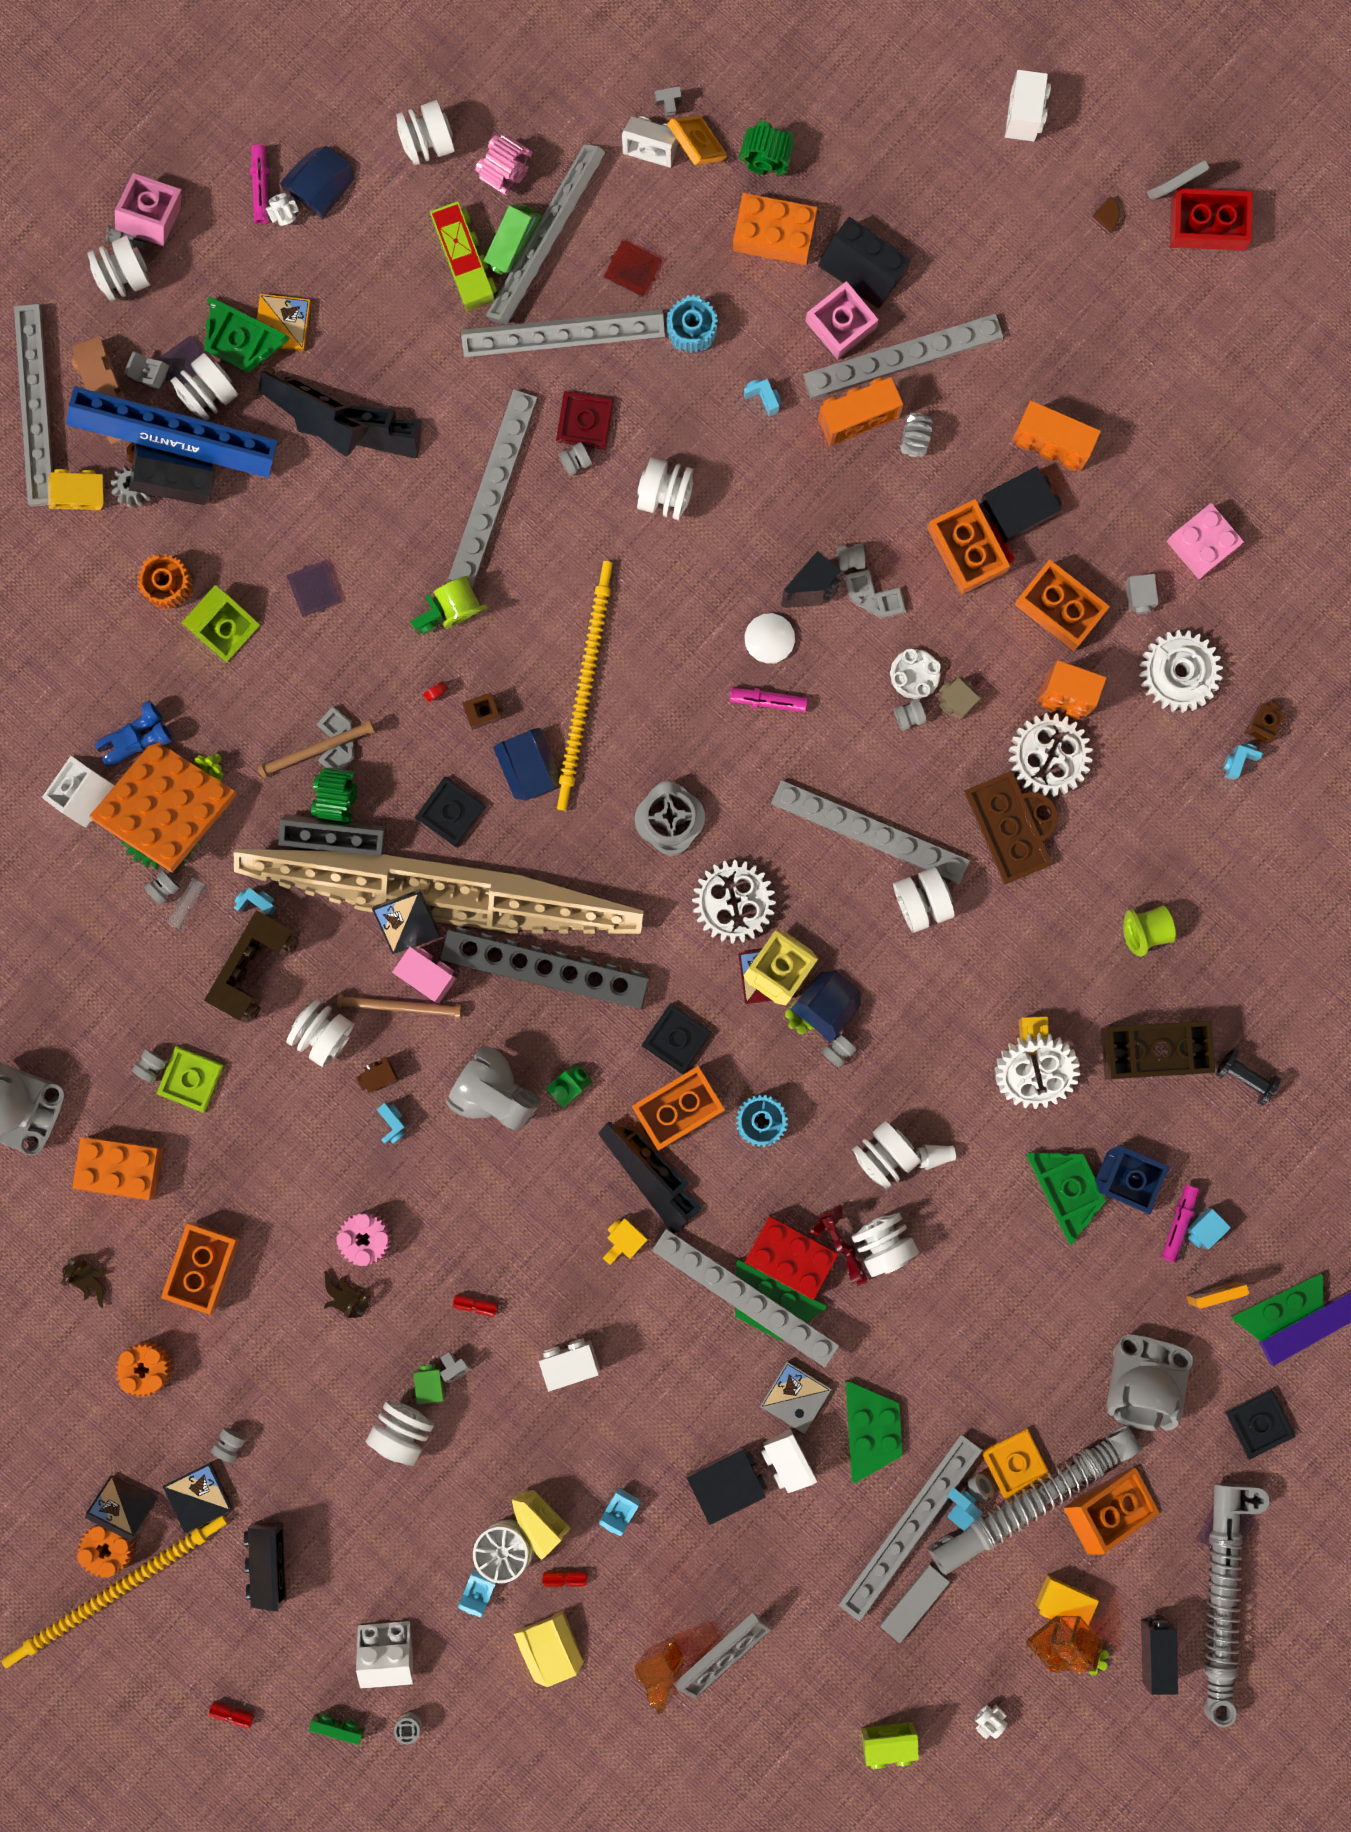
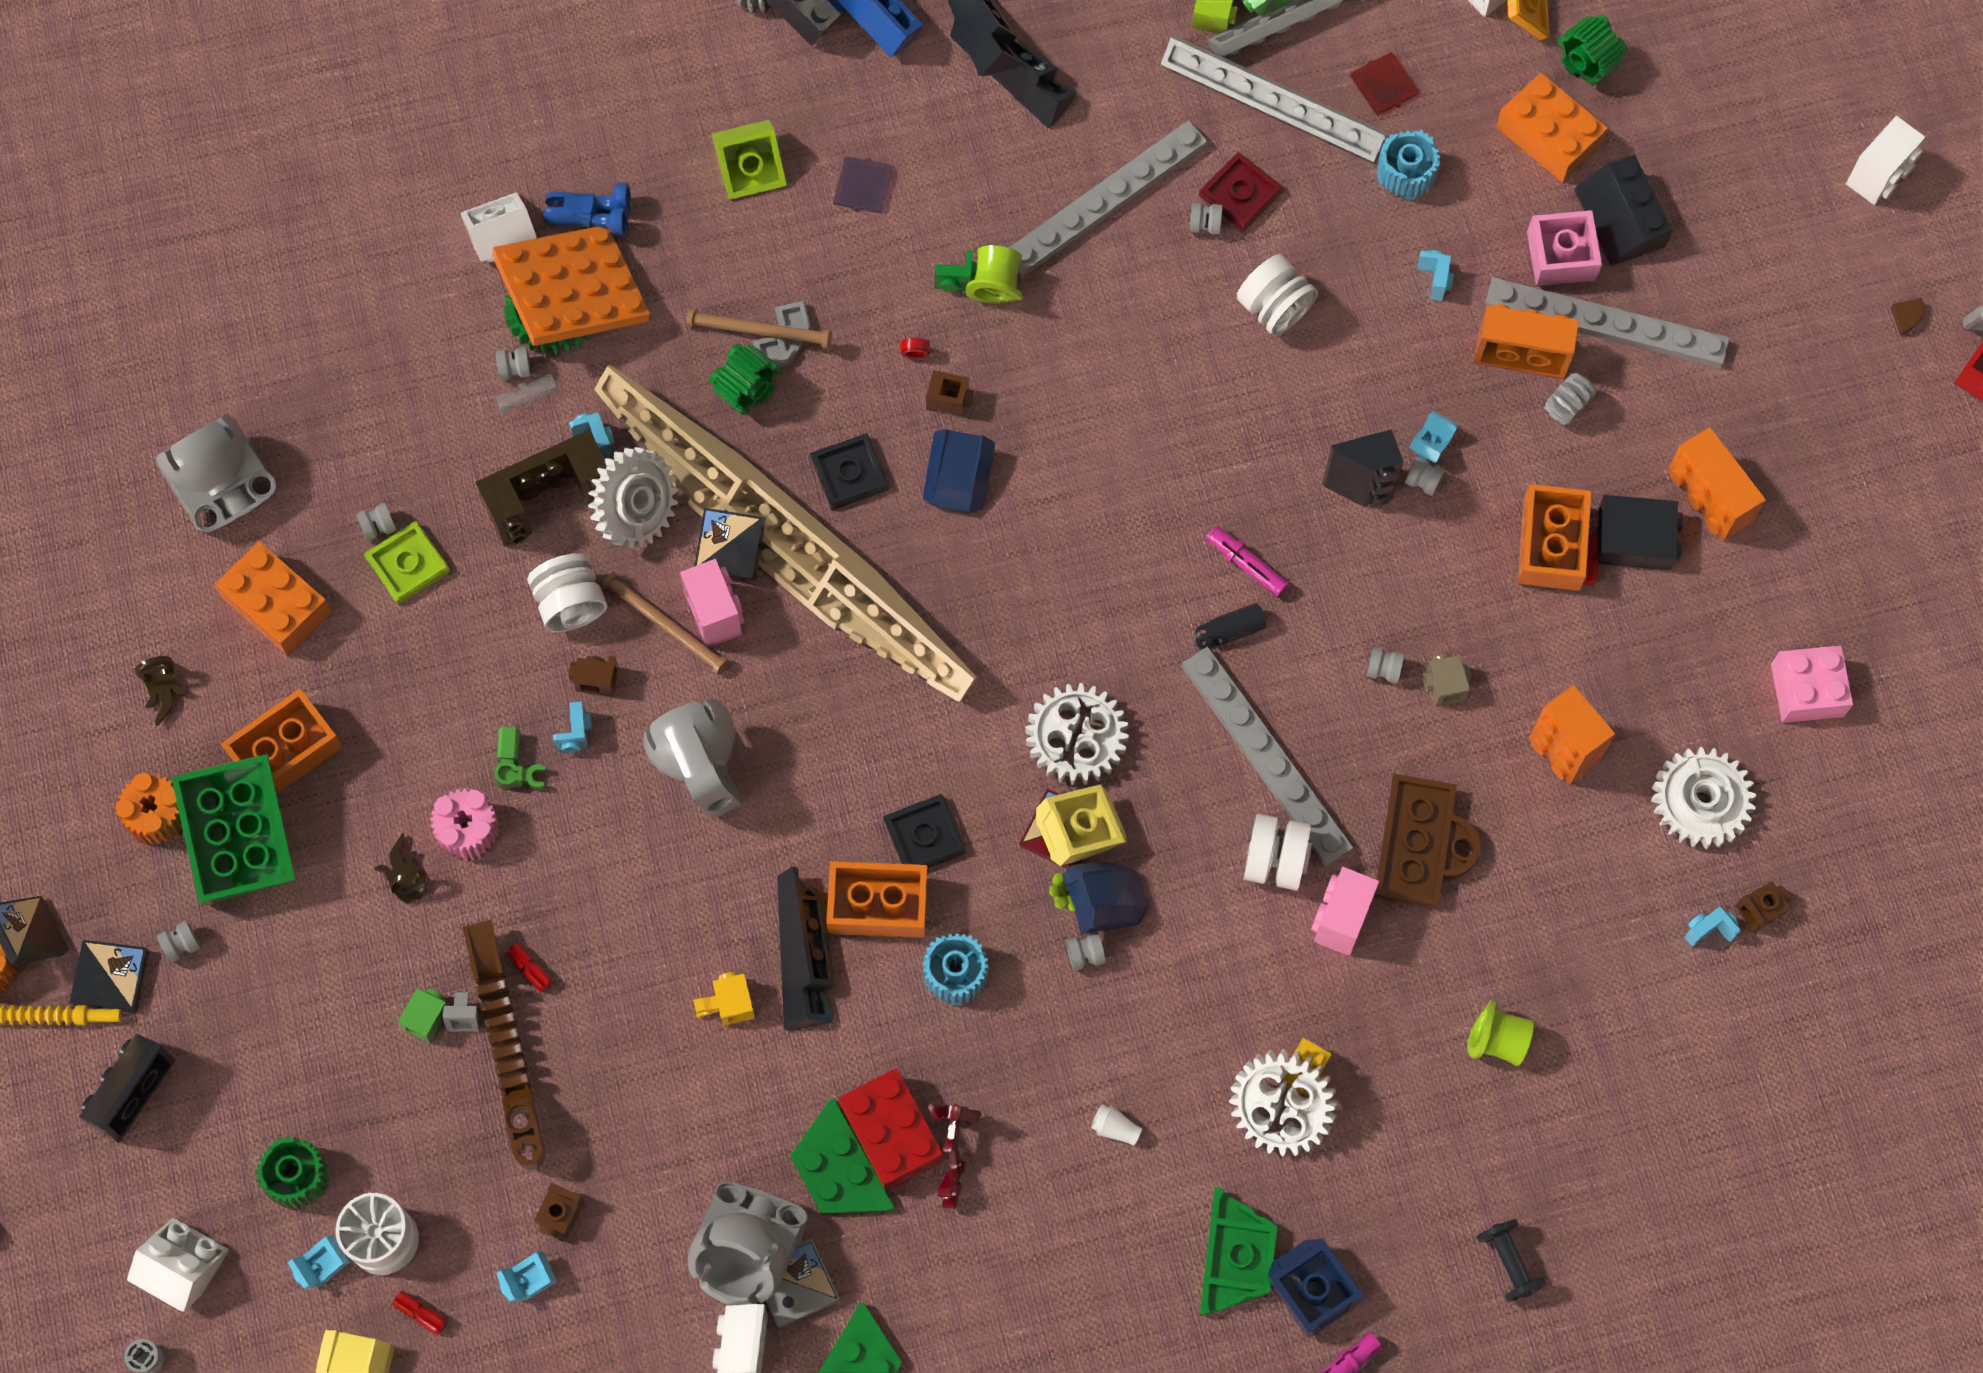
camera: 30 degrees right, 15 degrees down
(174, 591) = (723, 87): orange brick -> none
(210, 765) = (644, 279): lime plant -> none
(212, 1350) = (233, 829): none -> green slope
(319, 936) = (633, 497): none -> white gear
(327, 1726) = (81, 1318): green plate -> none
(332, 835) = (716, 415): dark grey brick -> none
(366, 1182) = (510, 775): none -> bright green bar
(398, 1437) = (354, 1042): white wheel -> none
(422, 1561) = (305, 1185): none -> green brick
(454, 953) = (905, 761): dark grey brick -> none
(501, 1371) = (504, 1039): none -> reddish brown piece
(538, 1522) = (434, 1231): light yellow slope -> none
(569, 1084) = (781, 808): green bracket -> none
(569, 1364) = (581, 1084): white brick -> none
(602, 592) = (988, 512): yellow hose -> none
(610, 1445) = (571, 1206): none -> reddish brown brick
(668, 792) = (1045, 594): light grey piece -> none
(727, 1485) = (659, 1326): black brick -> none
(746, 1298) = (814, 1141): light grey plate -> none
(749, 1399) = (745, 1244): none -> light grey piece
(769, 638) = (1288, 504): white dish -> none
(788, 754) = (1231, 626): none -> black piece
(839, 524) = (1434, 437): none -> medium azure bracket
(880, 604) = (1425, 541): light grey tile -> none
(887, 1249) = (998, 1186): white wheel -> none
(890, 1152) = (1063, 1086): white wheel -> none
(915, 673) = (1417, 629): white dish -> none
(994, 911) = (1347, 906): none -> bright pink brick
(1029, 745) = (1525, 817): white gear -> none
(1061, 605) = (1616, 652): orange brick -> none
(1130, 1050) = (1459, 1184): dark brown plate -> none
(1141, 593) = (1710, 695): light grey brick -> none

